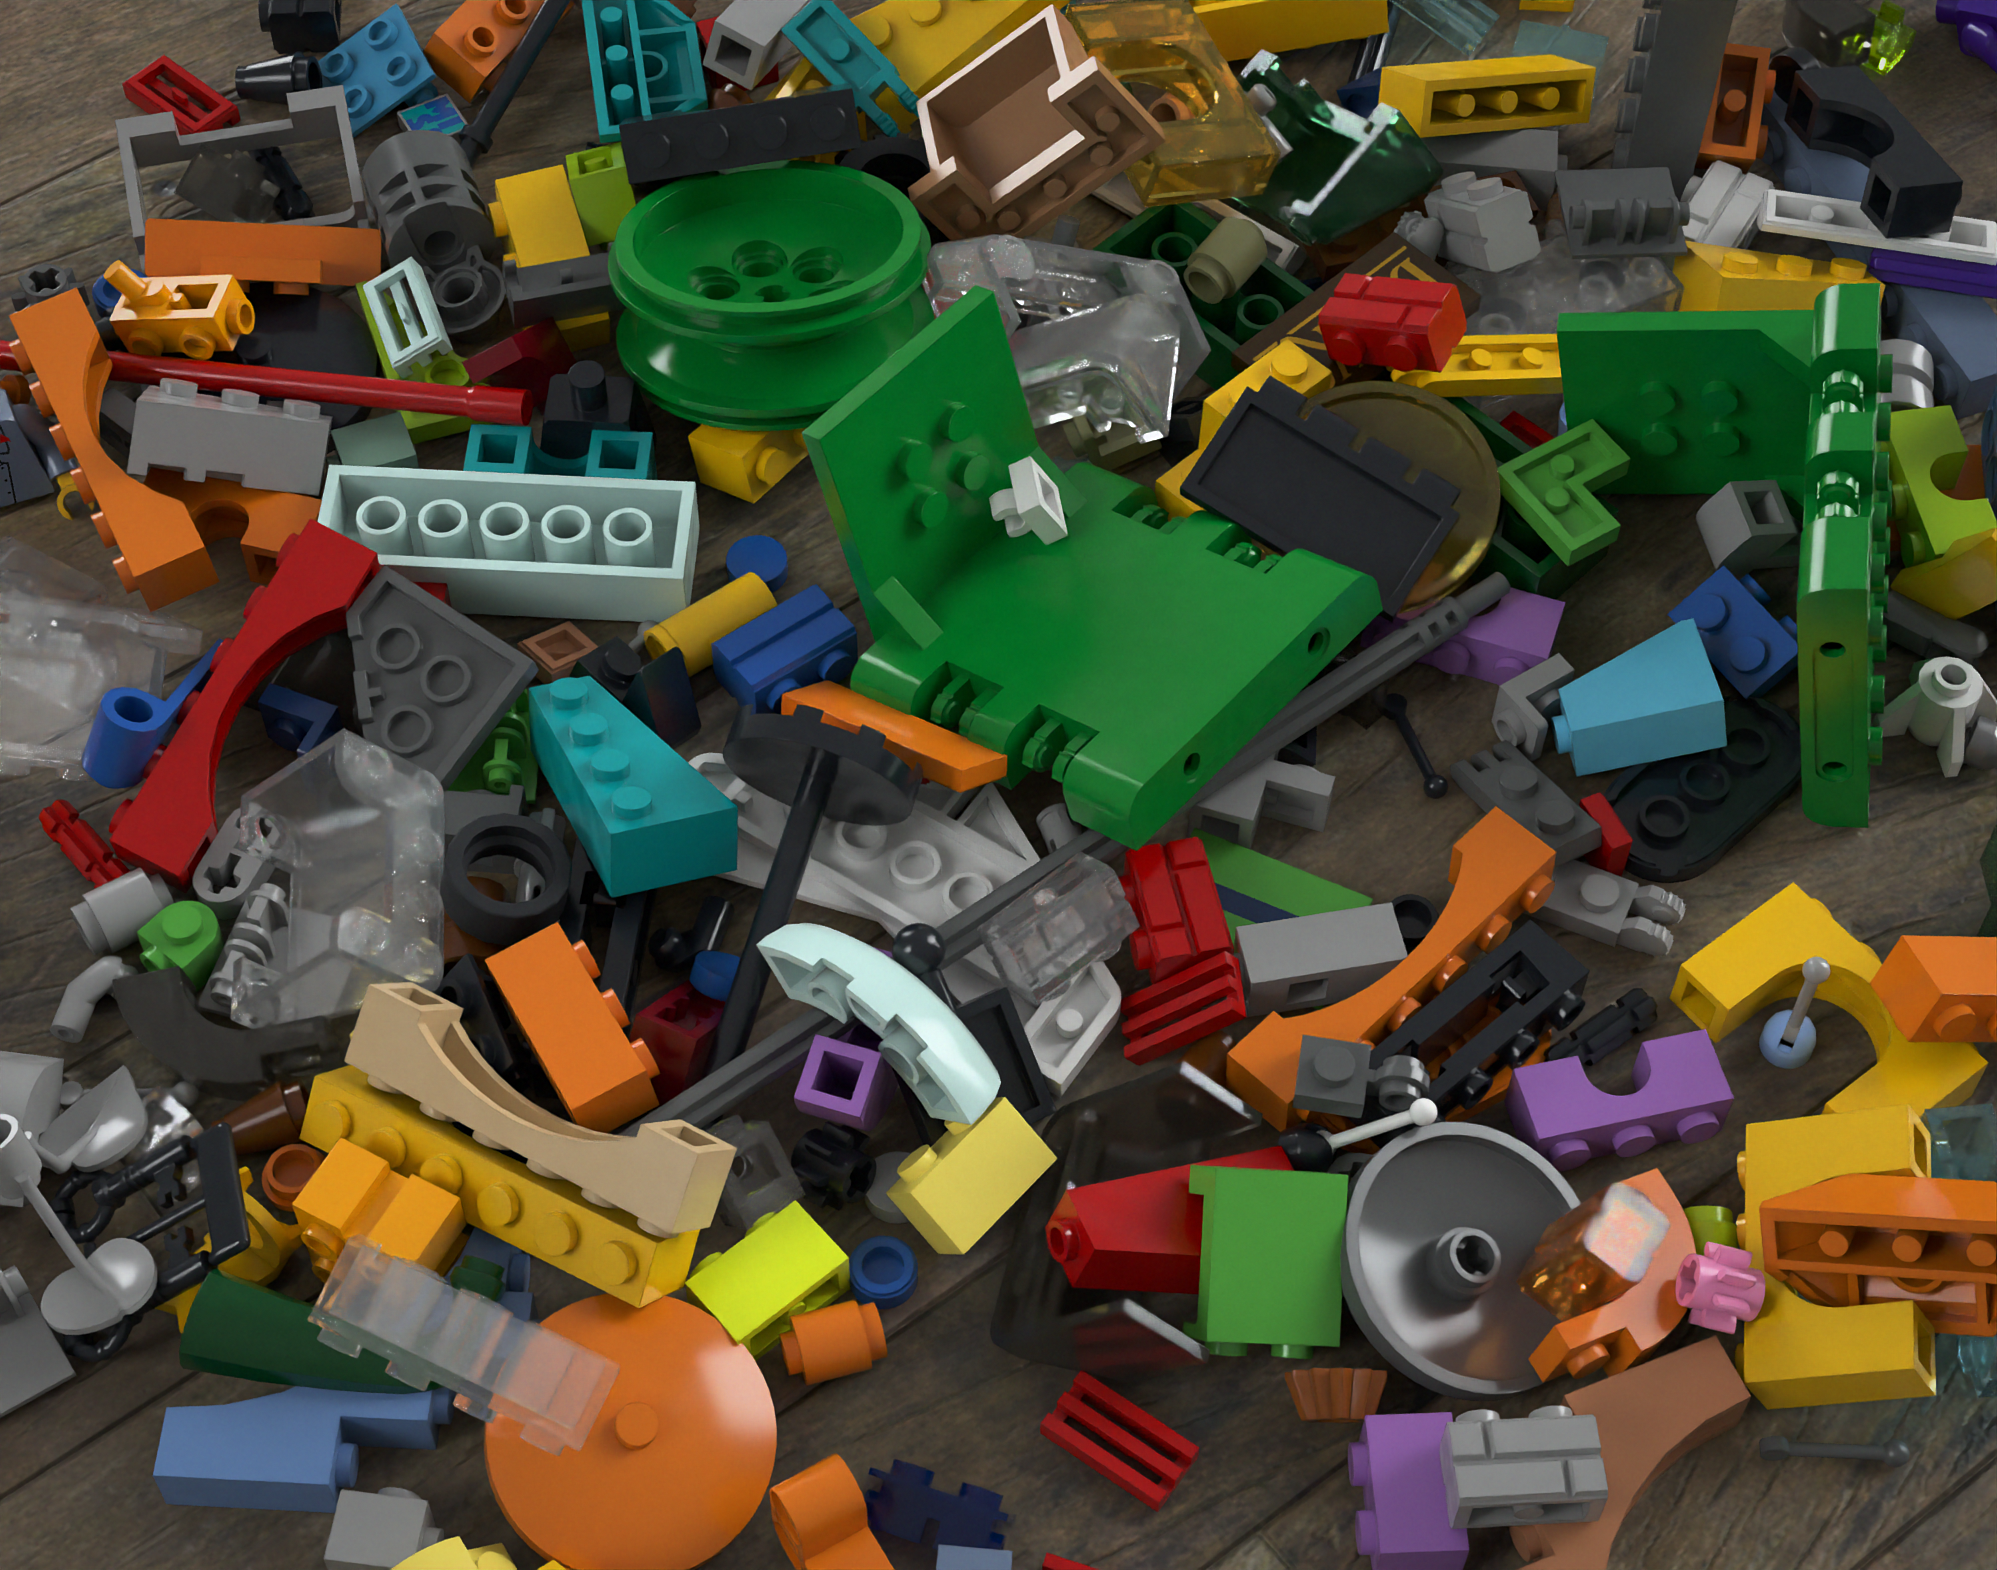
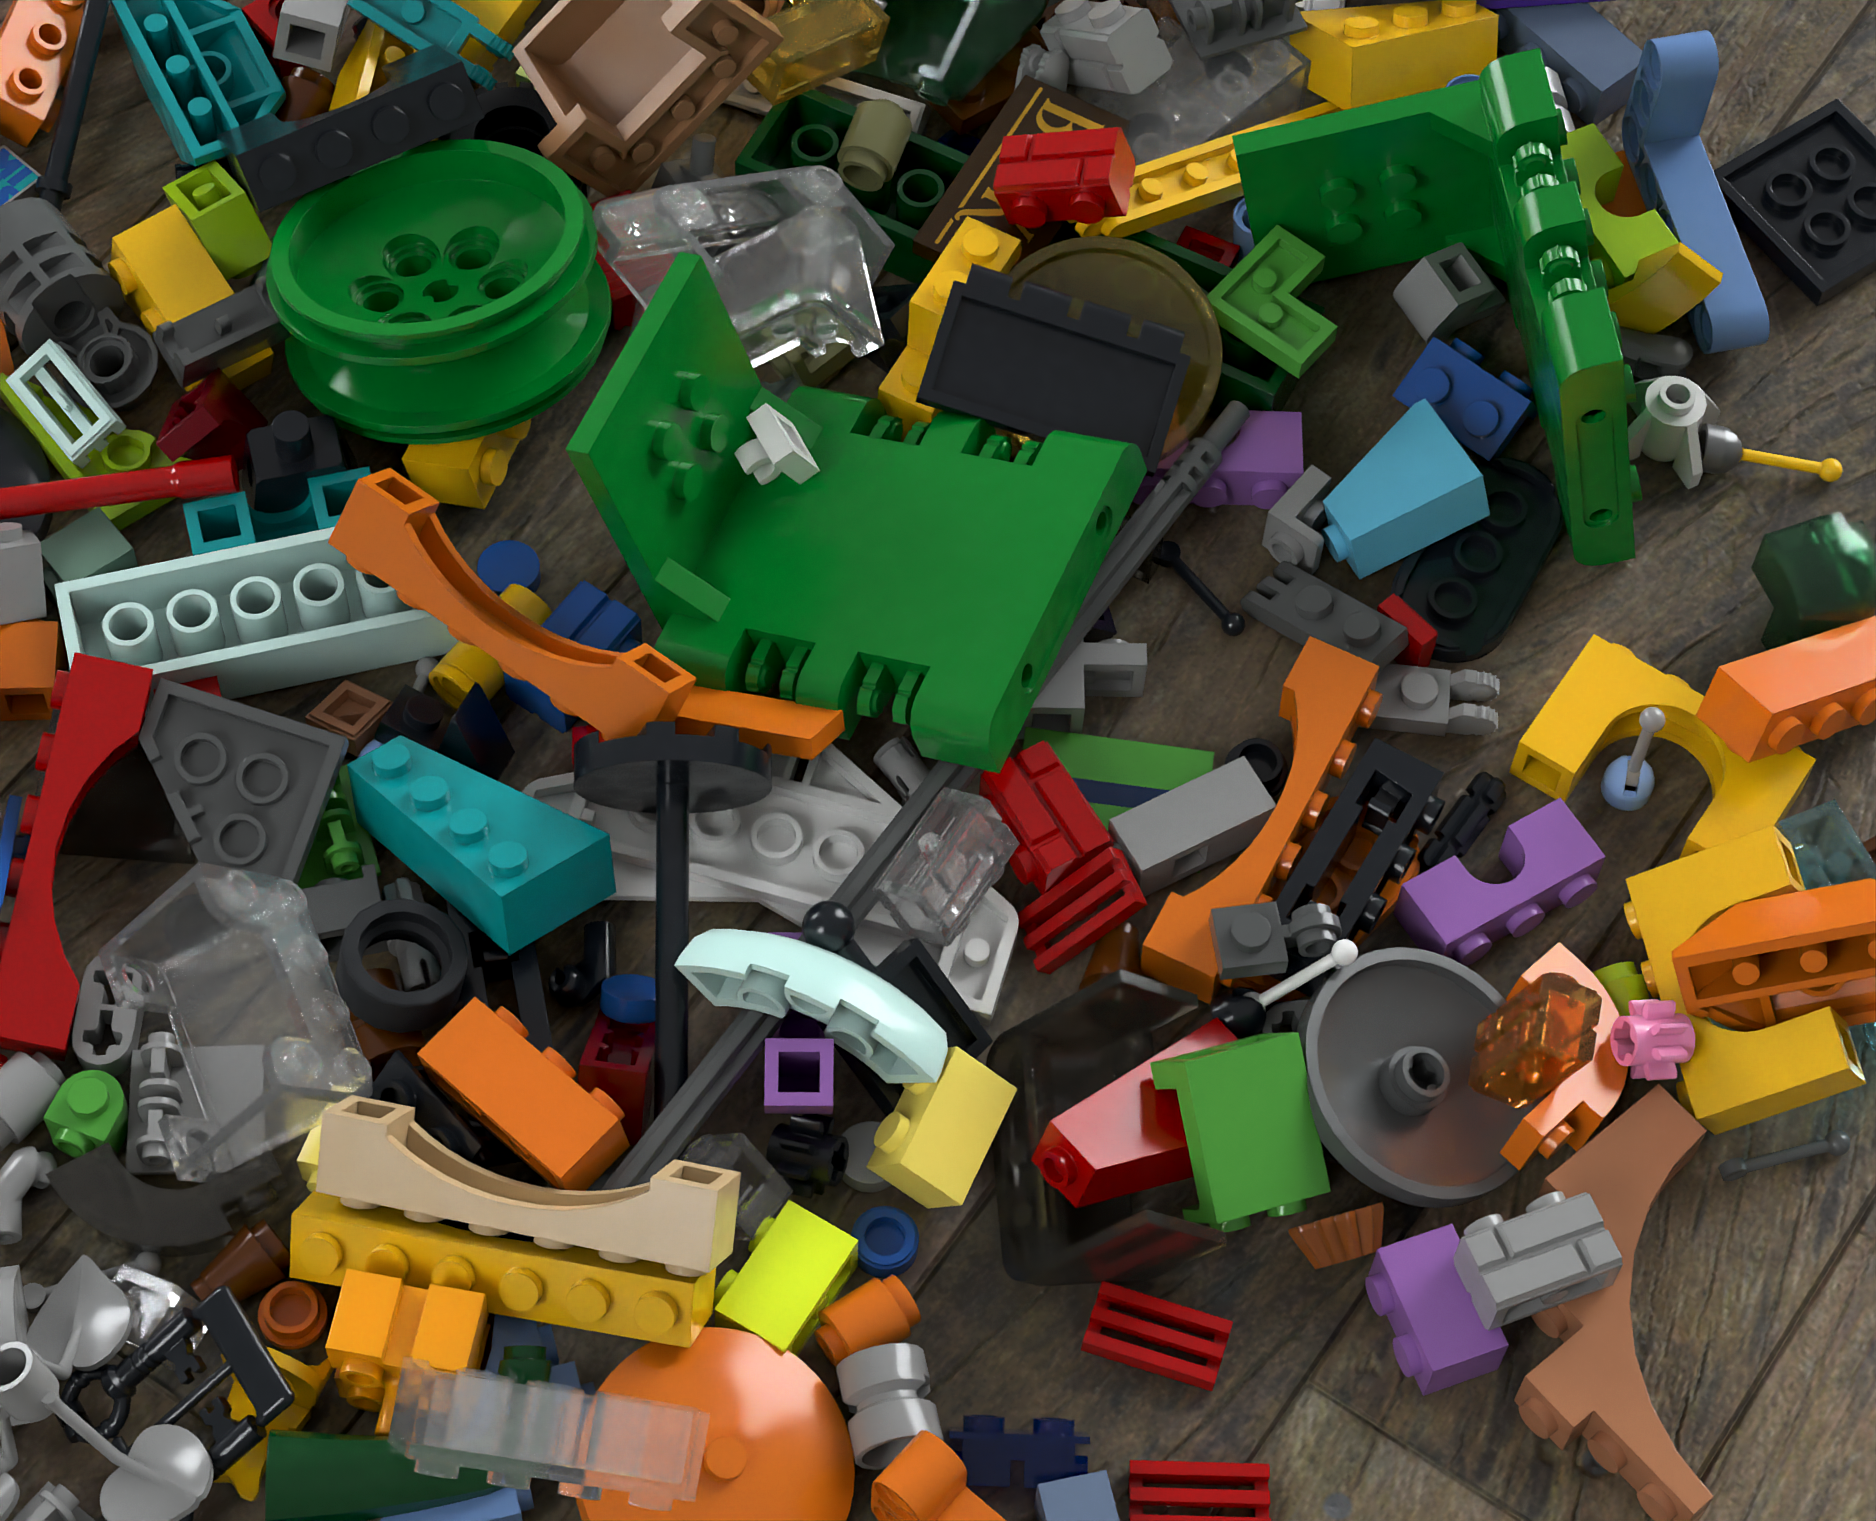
camera: 20 degrees left, 5 degrees up
(297, 719) = (124, 857): dark blue bracket -> none
(646, 495) = (396, 536): none -> orange arch
(827, 1414) = (887, 1395): none -> light grey wheel

